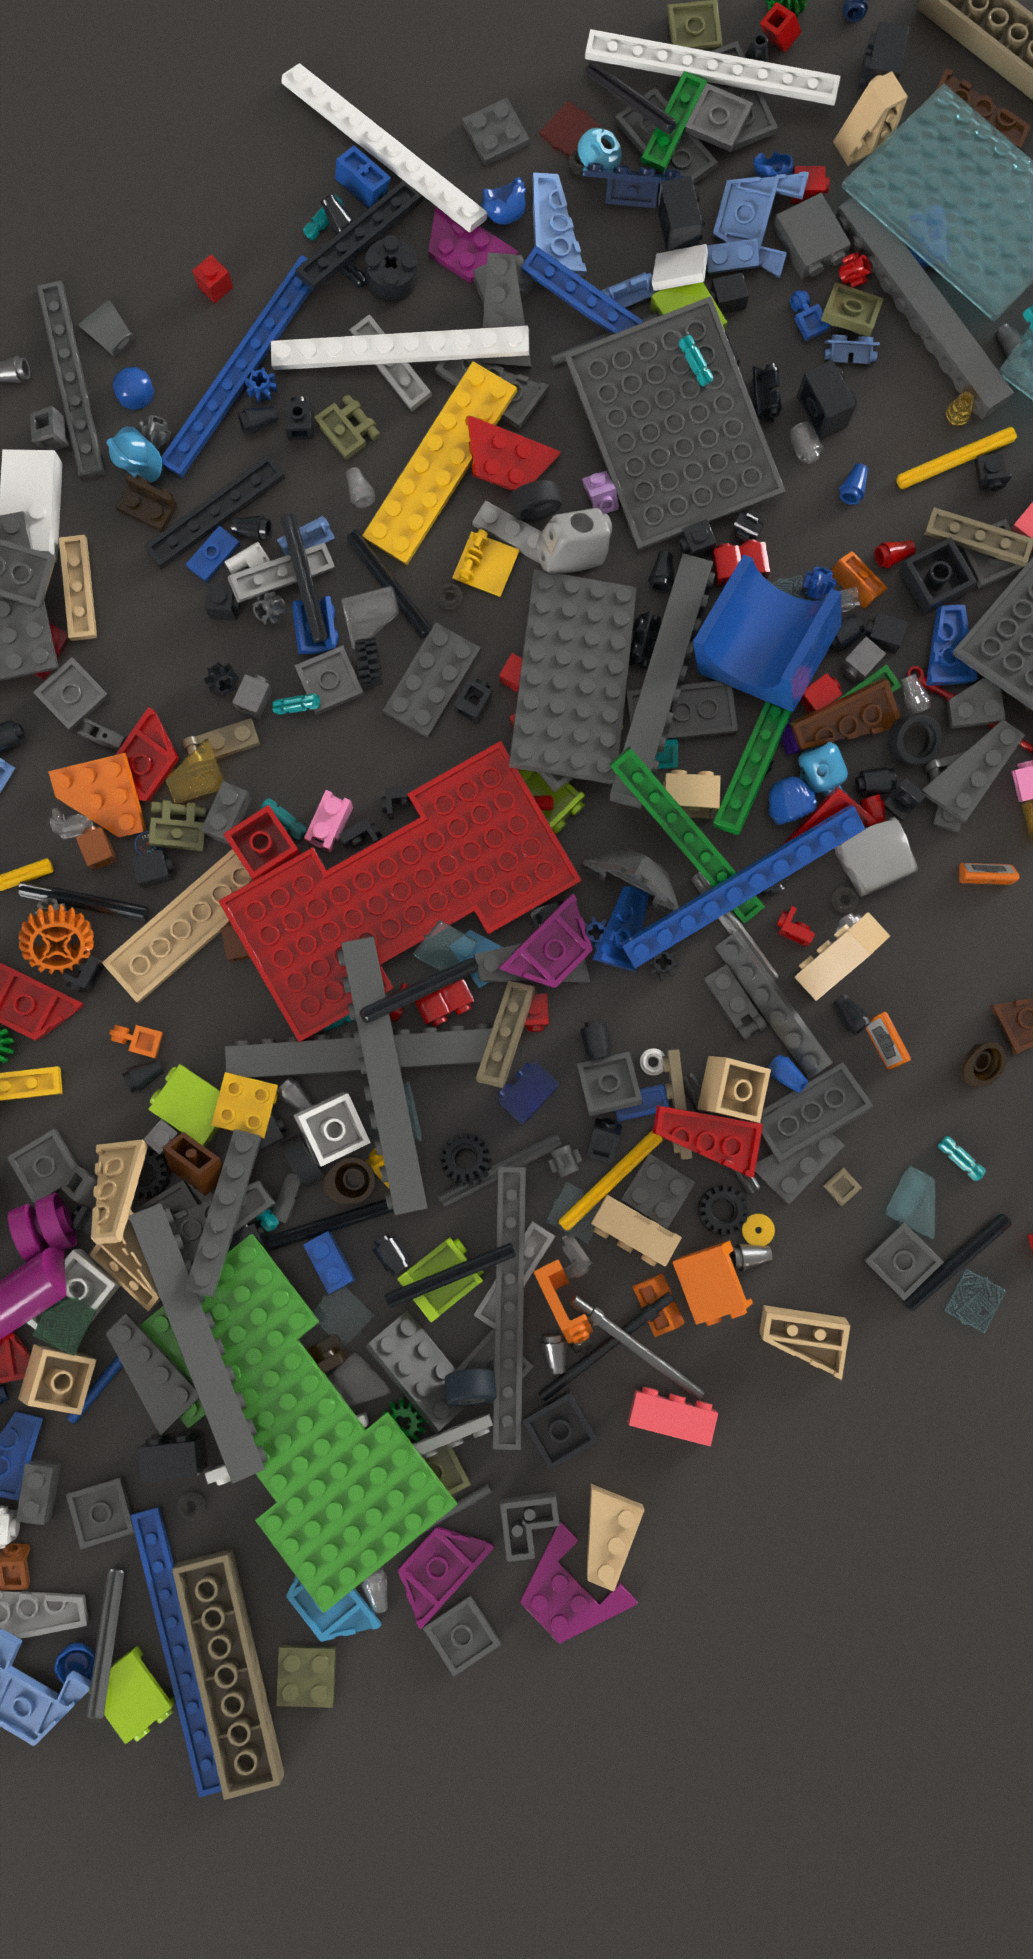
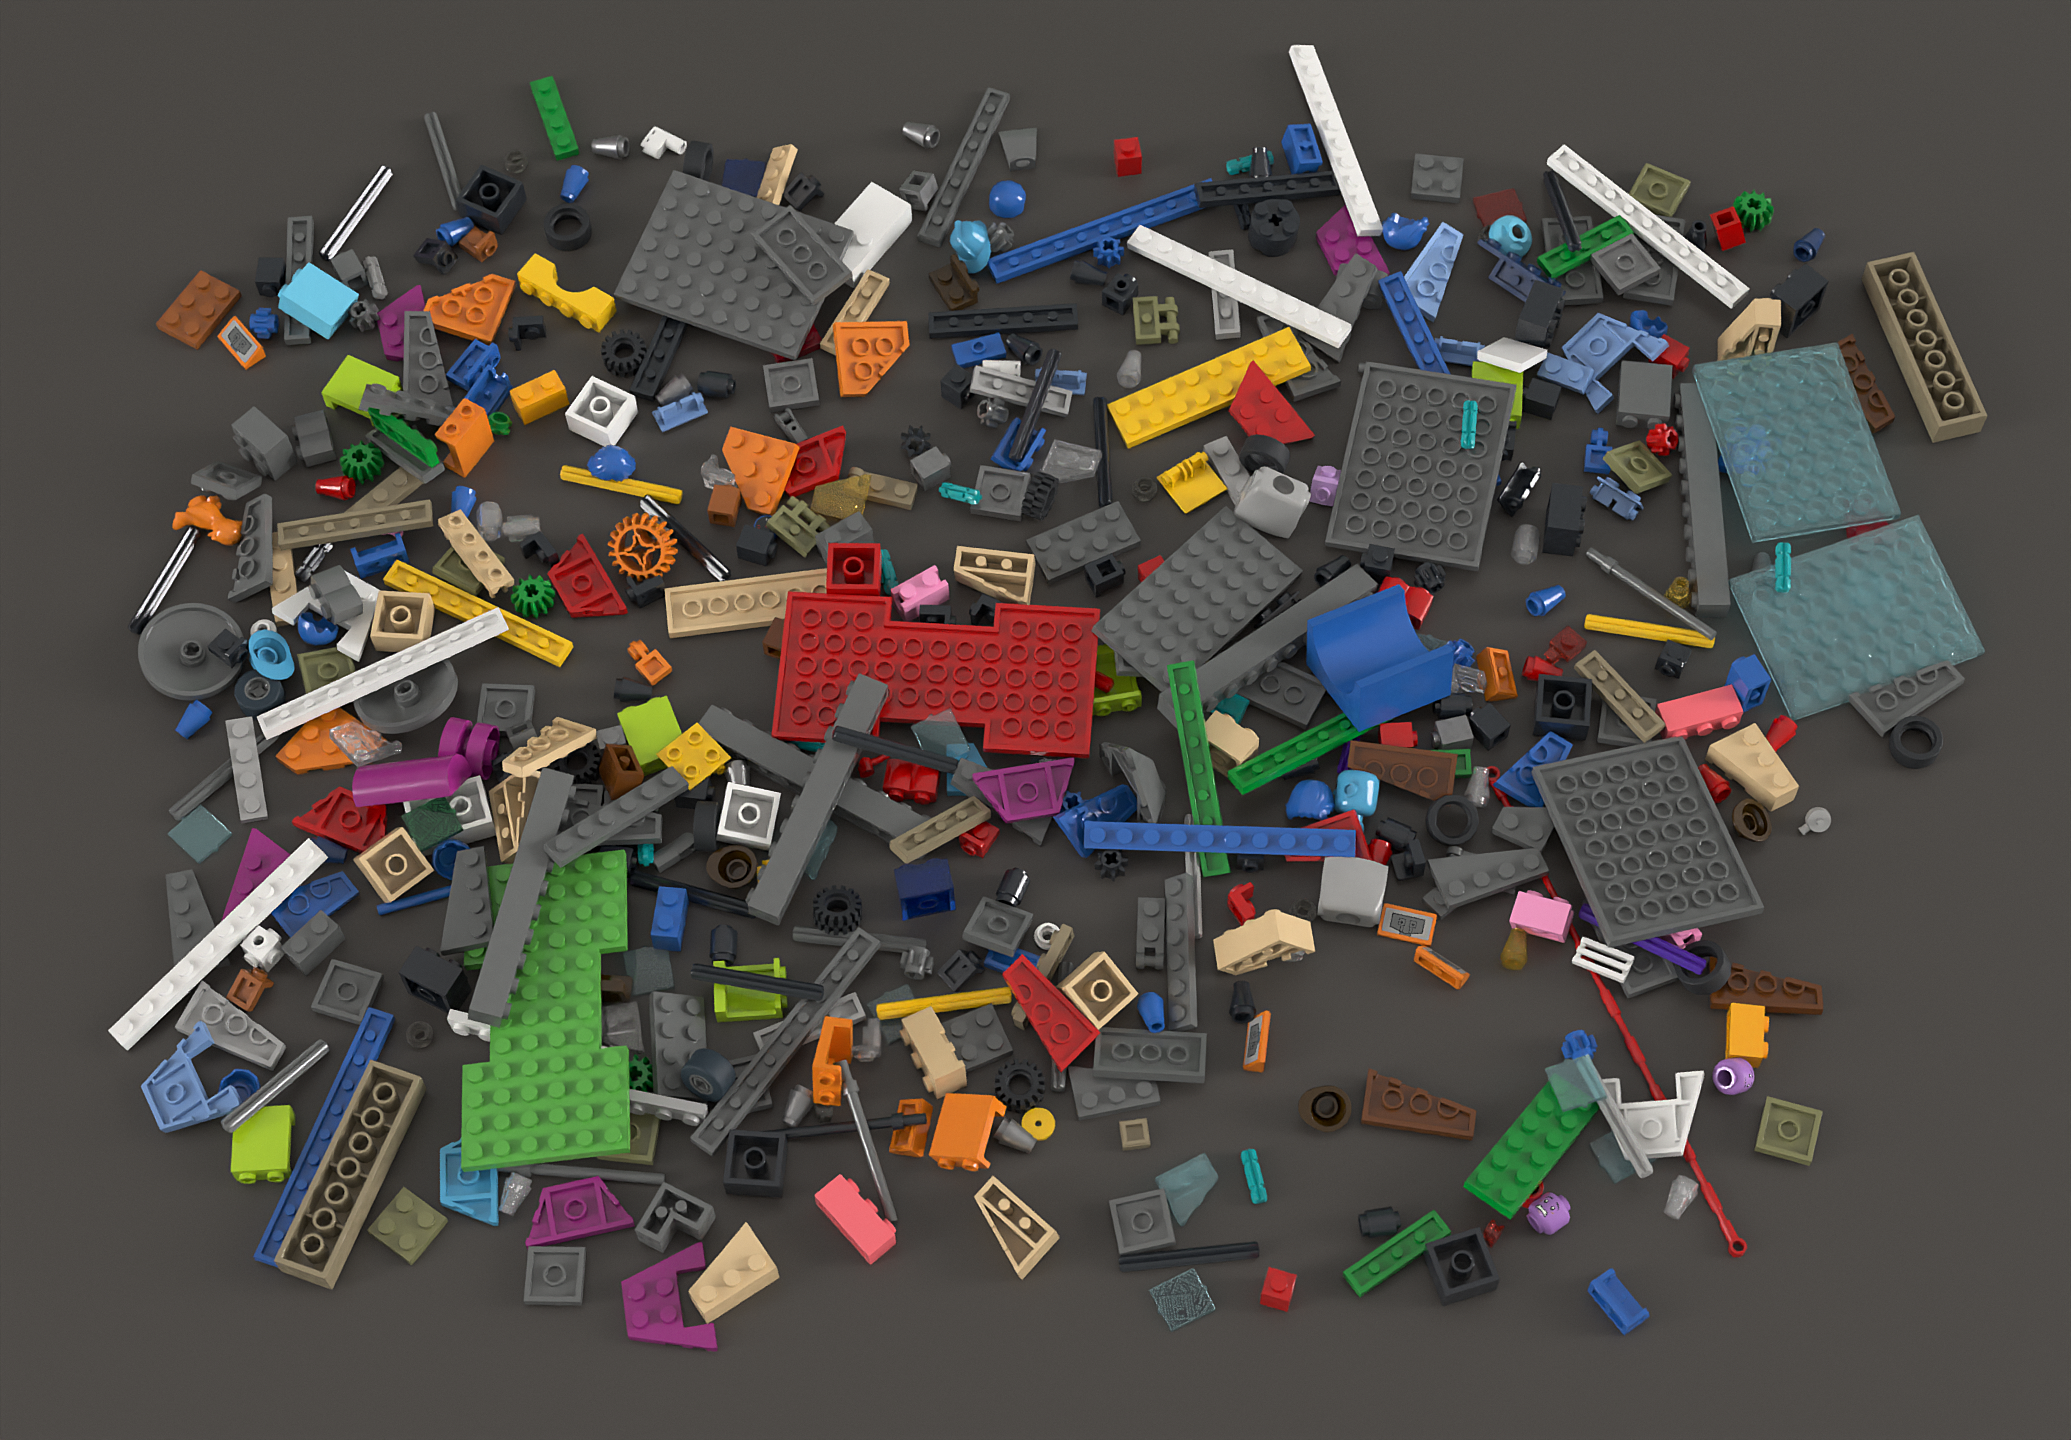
camera: 35 degrees right, 20 degrees down
(95, 1339) = (445, 856): none -> blue hair
(117, 621) = (866, 353): none -> orange plate
(384, 760) = (996, 573): none -> tan wedge
(886, 417) = (1611, 566): none -> dark grey bar
(897, 517) = (1564, 645): none -> clear red plate
(938, 856) = (1407, 924): none -> slope

